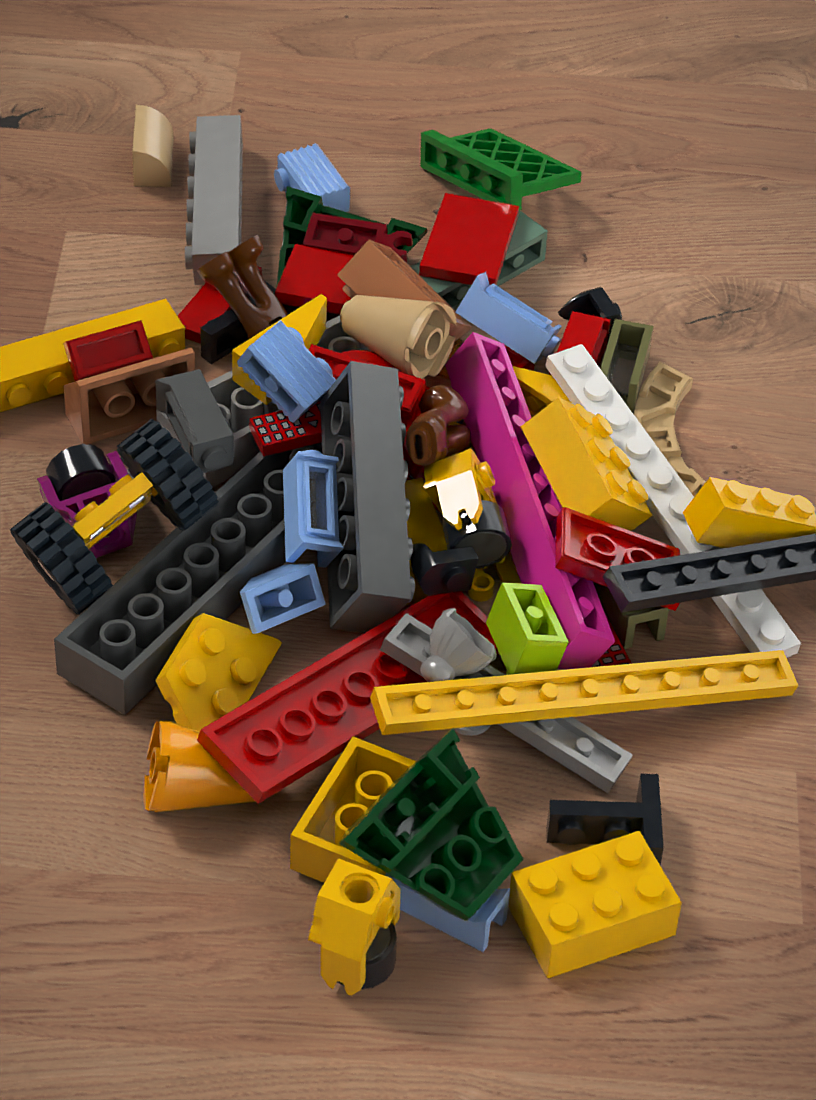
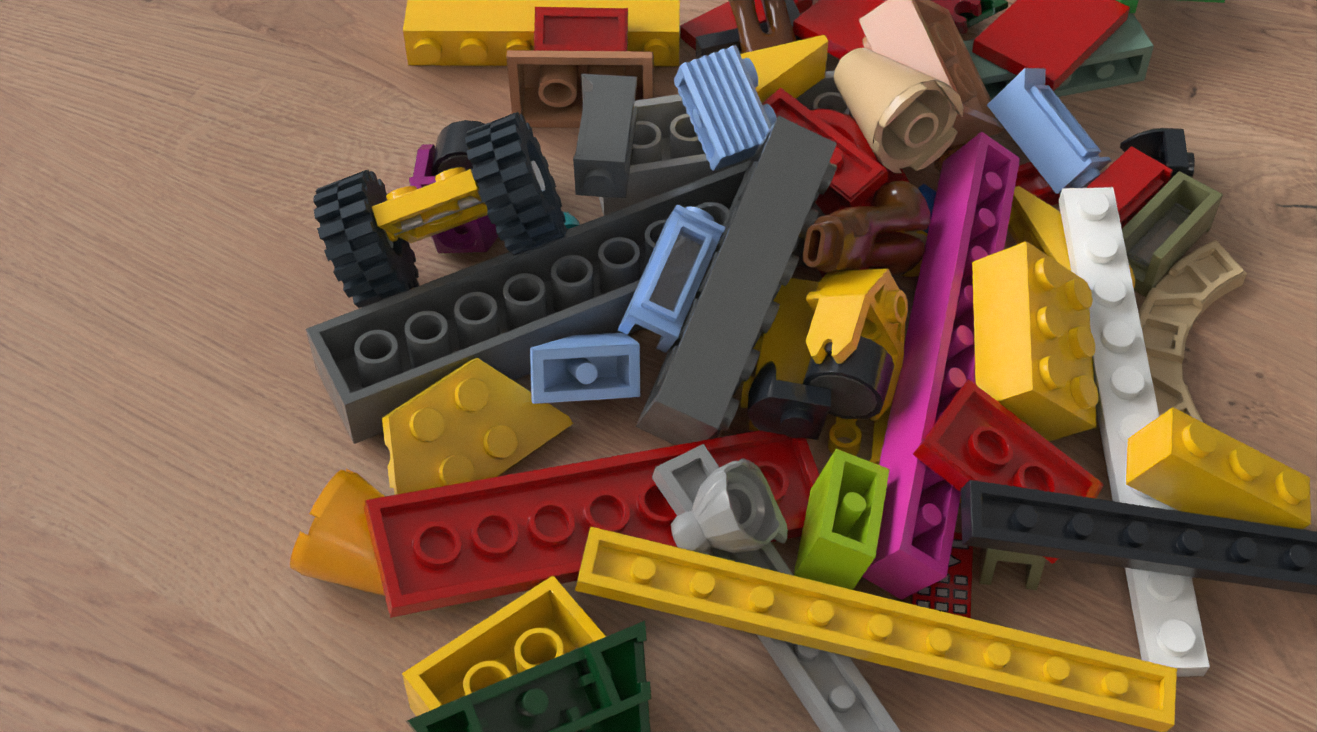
camera: 30 degrees right, 5 degrees up
(277, 434) = (692, 179): red tile -> none

